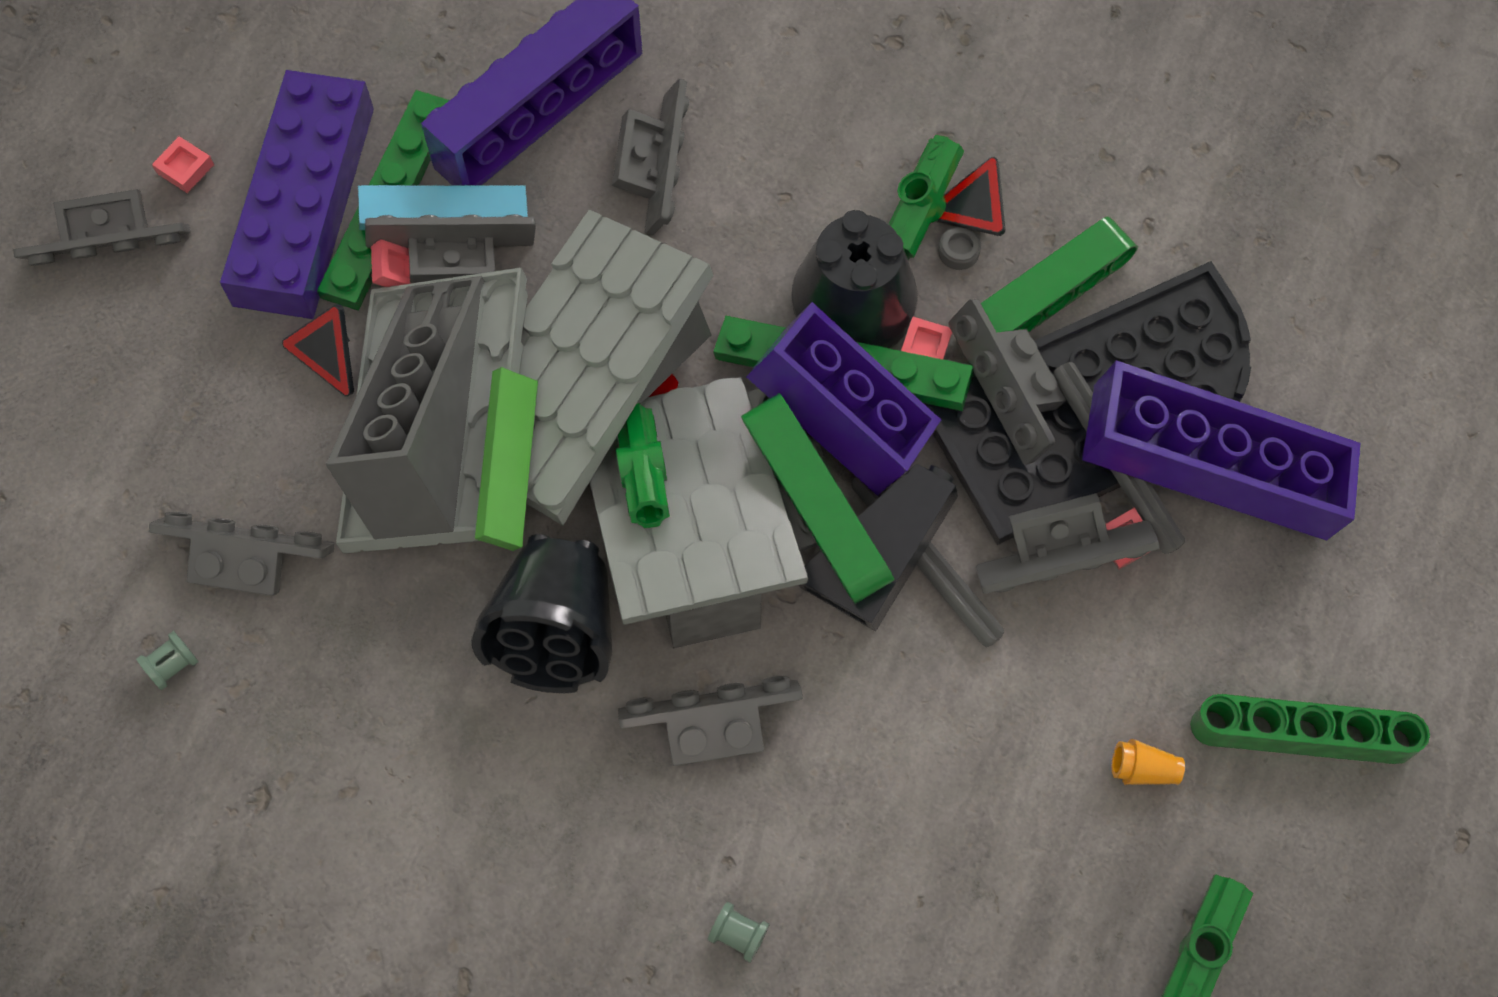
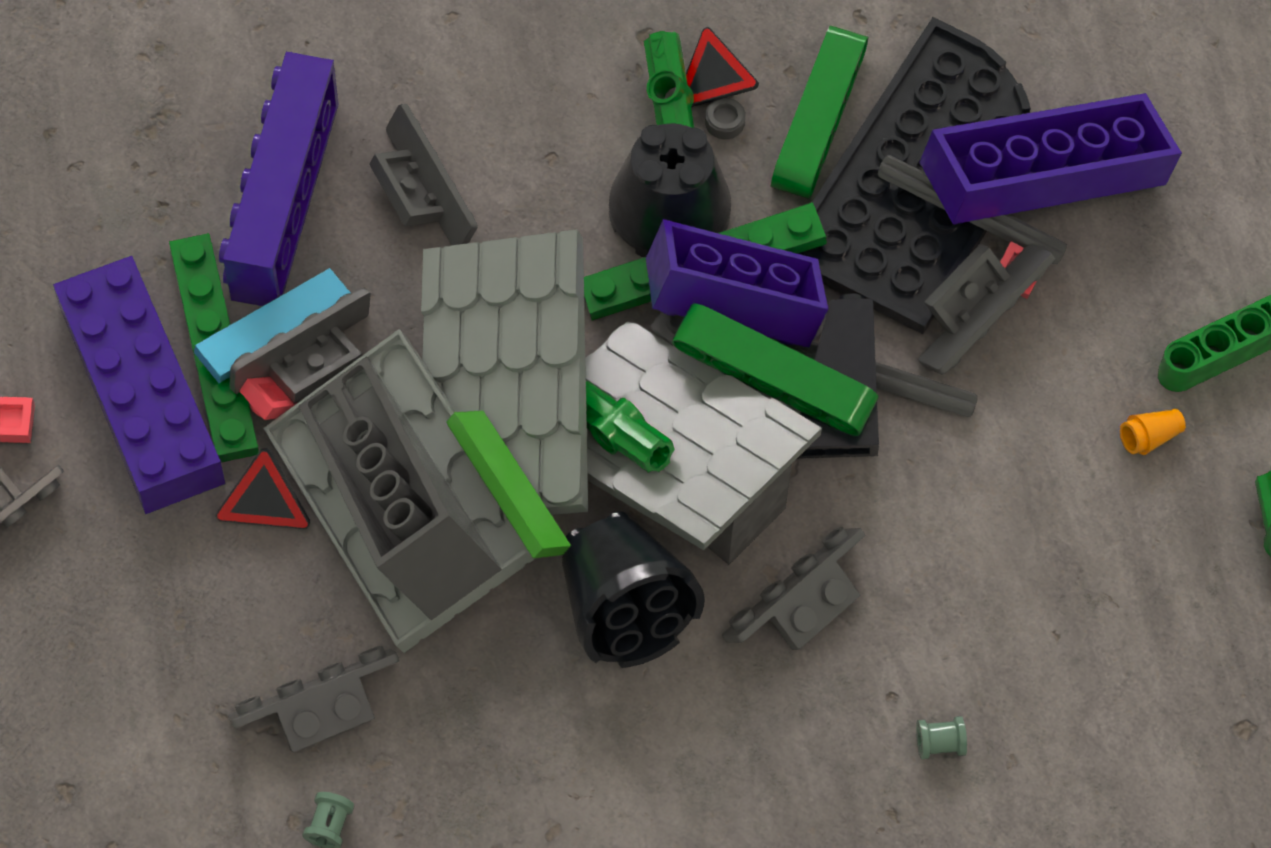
camera: 35 degrees left, 5 degrees down
(927, 338) = (754, 204): coral plate -> none
(1011, 377) = (847, 195): dark grey bracket -> none

